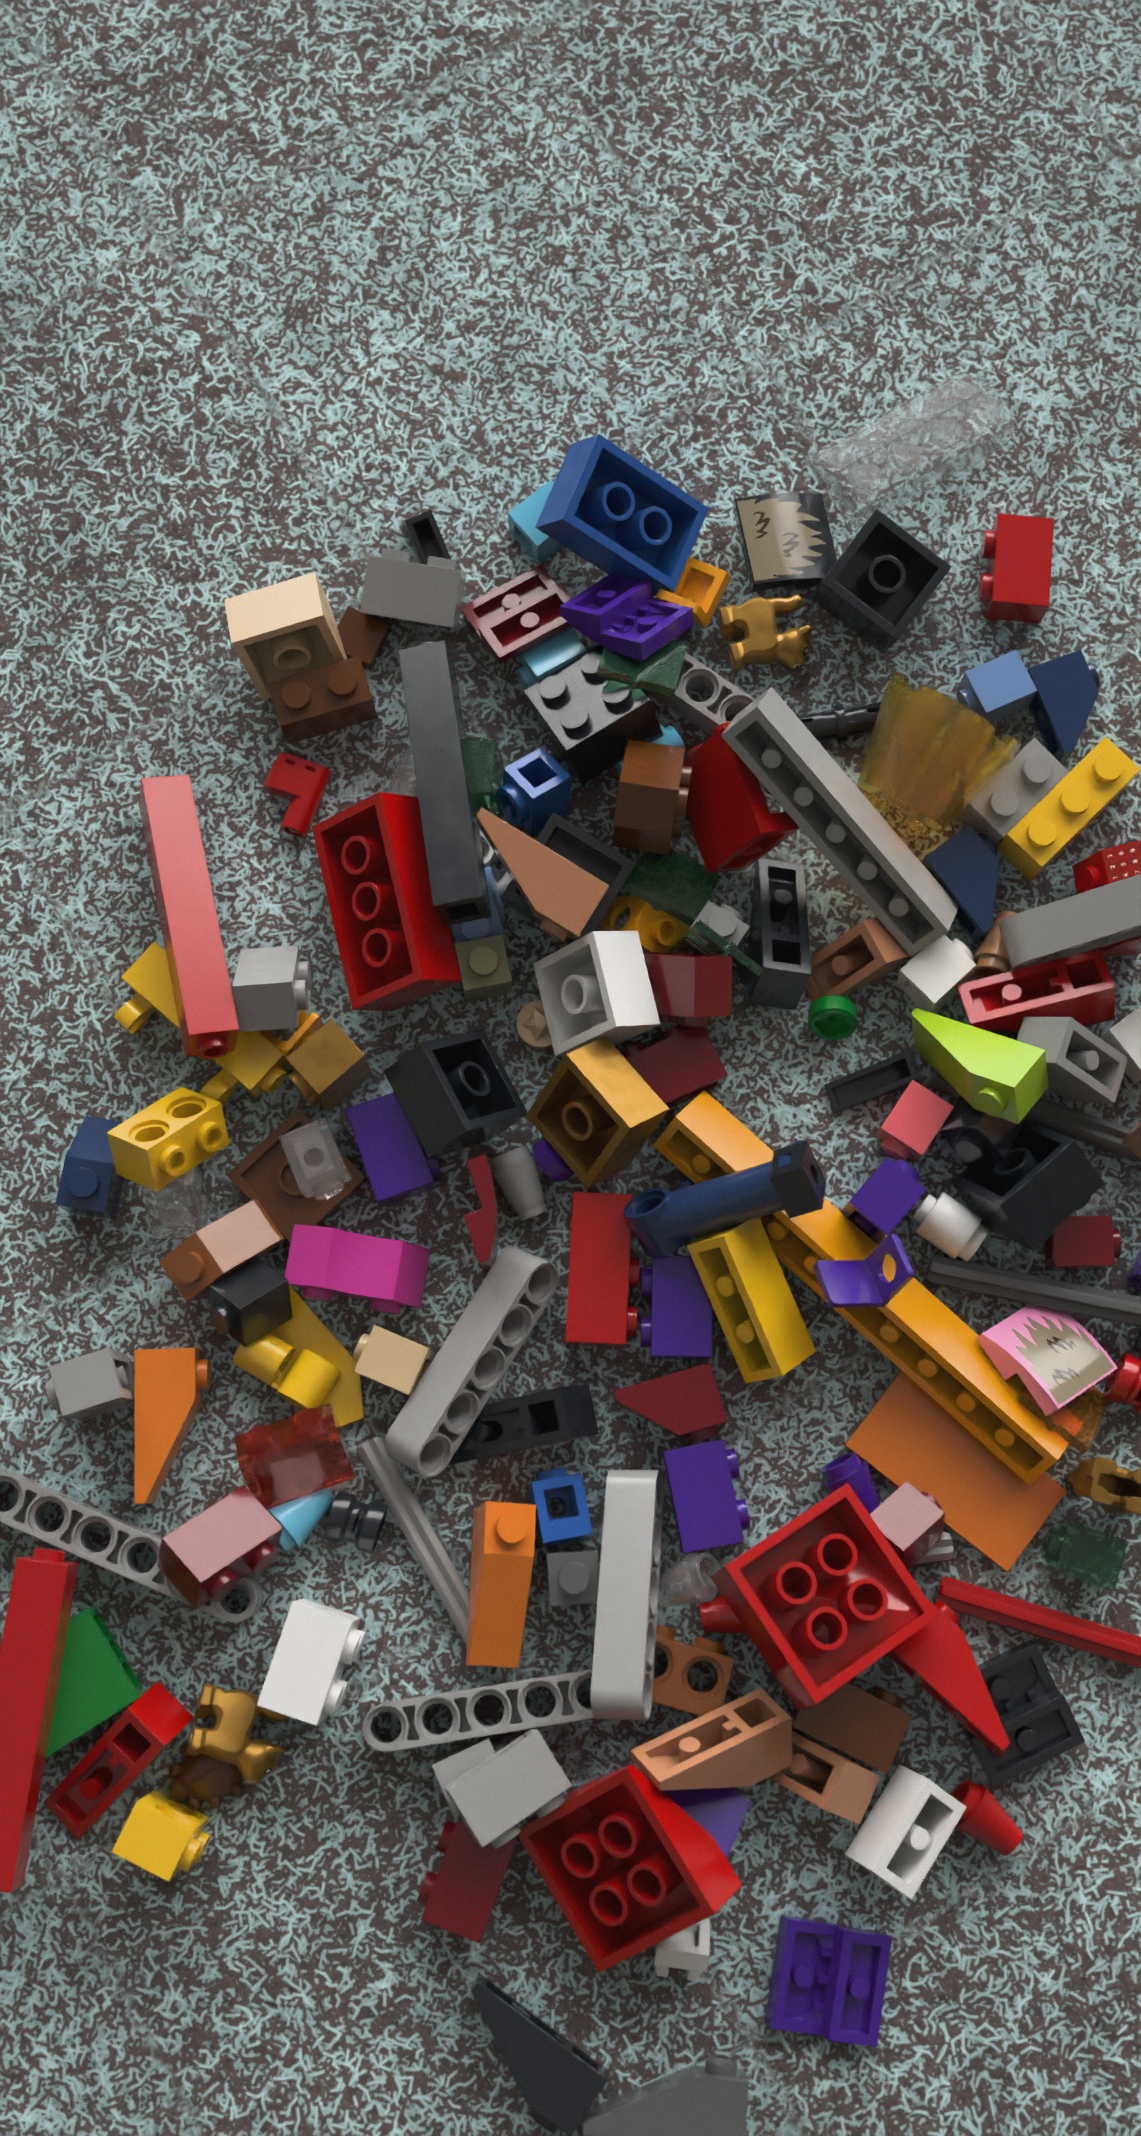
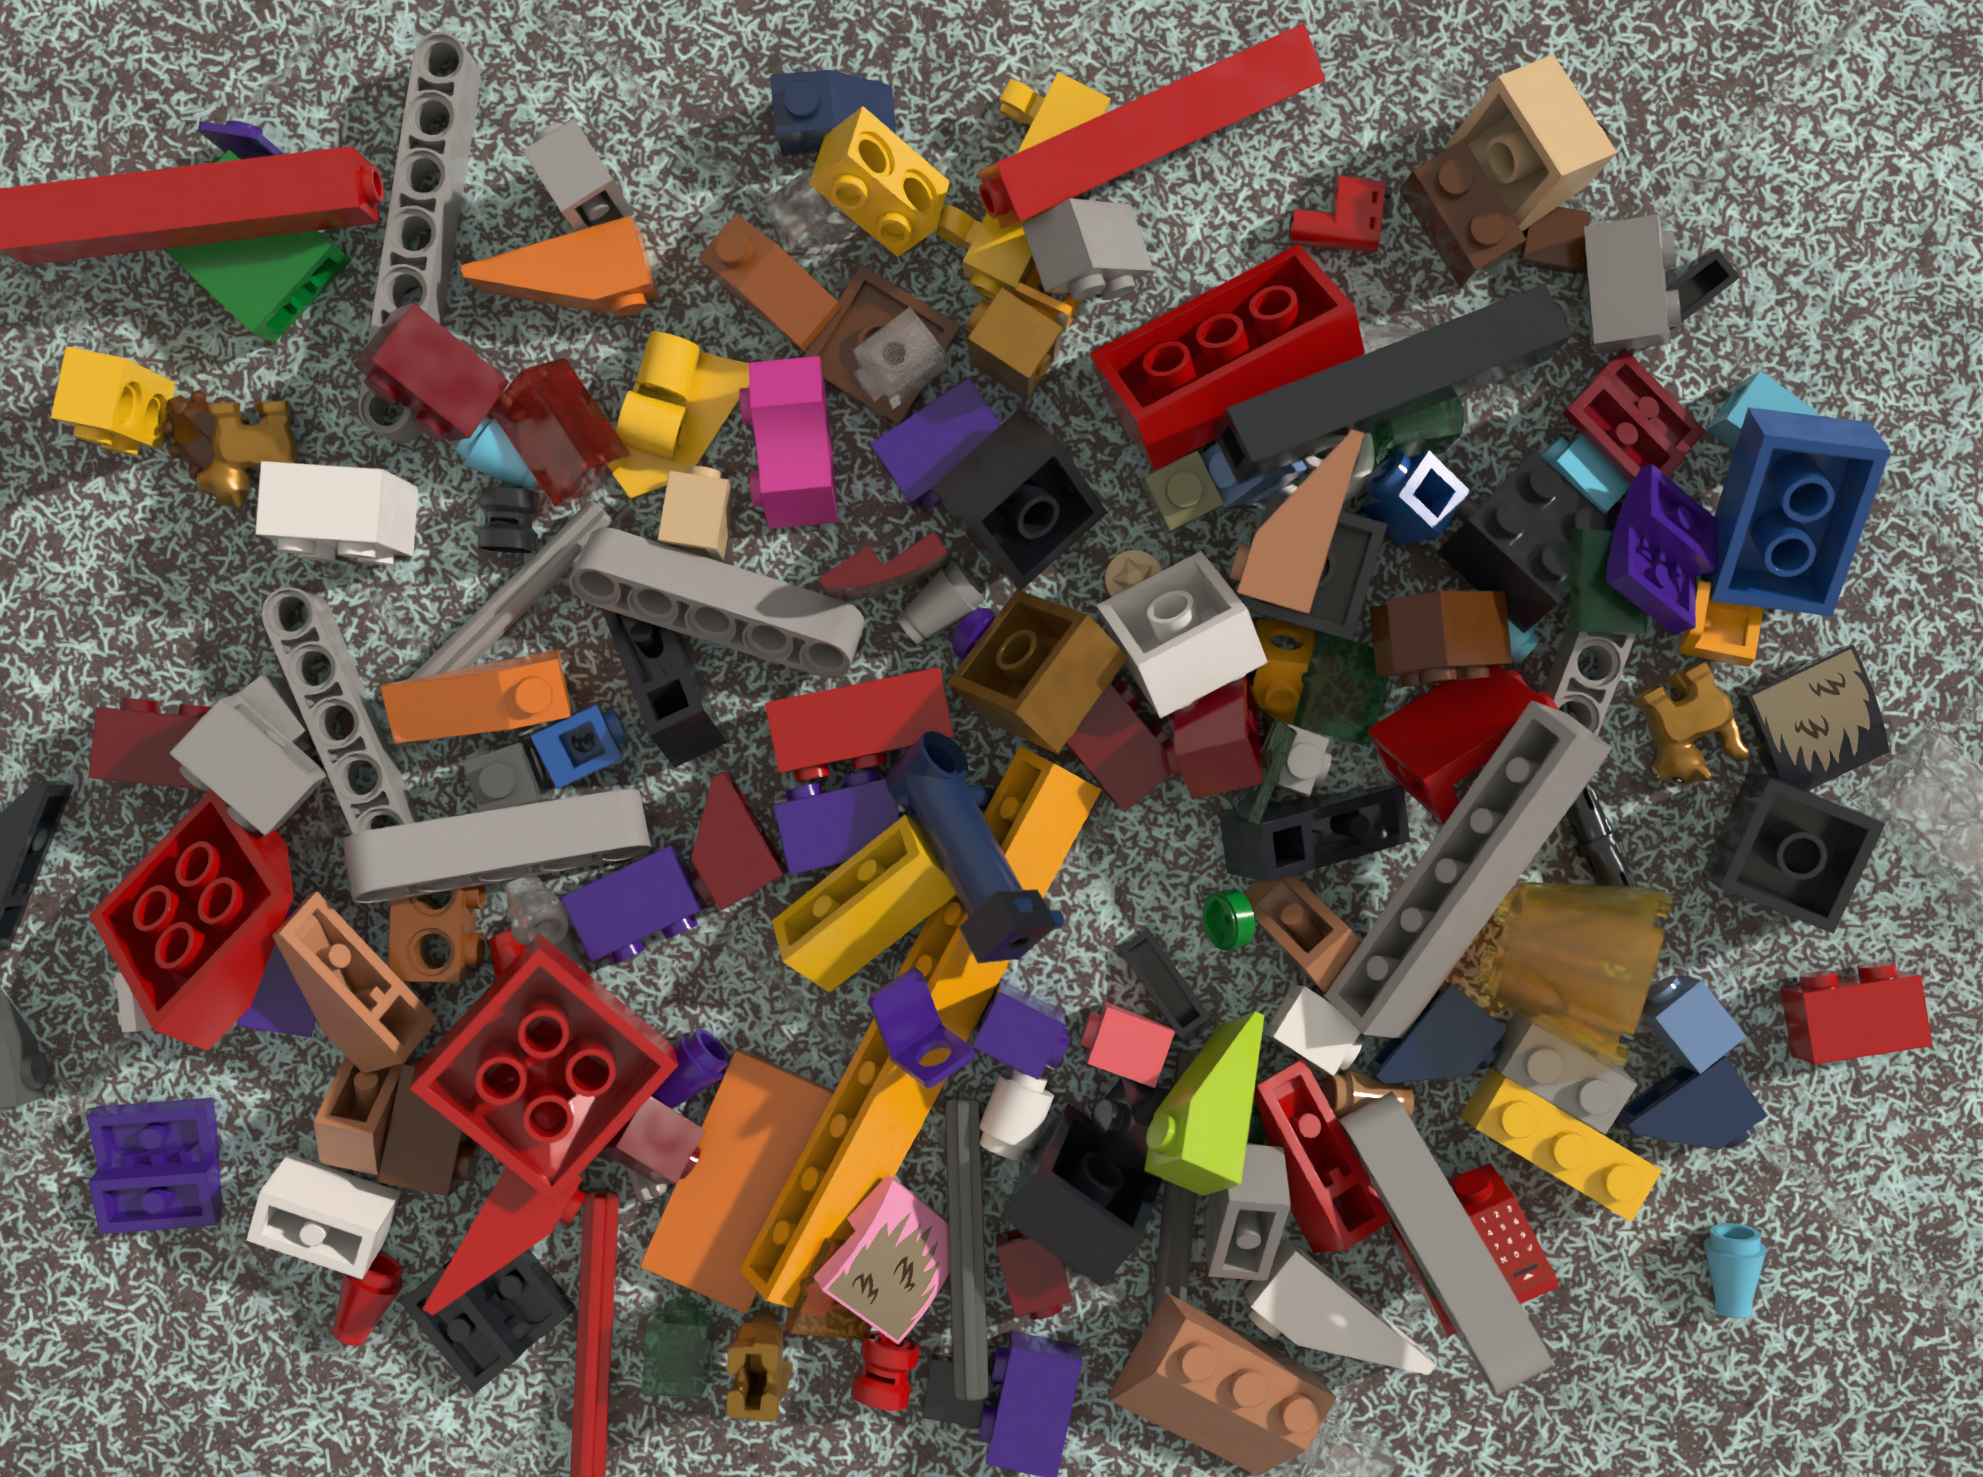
camera: 80 degrees right, 10 degrees up
(118, 1759) = (191, 333): red slope -> none
(250, 1302) = (717, 330): black brick -> none

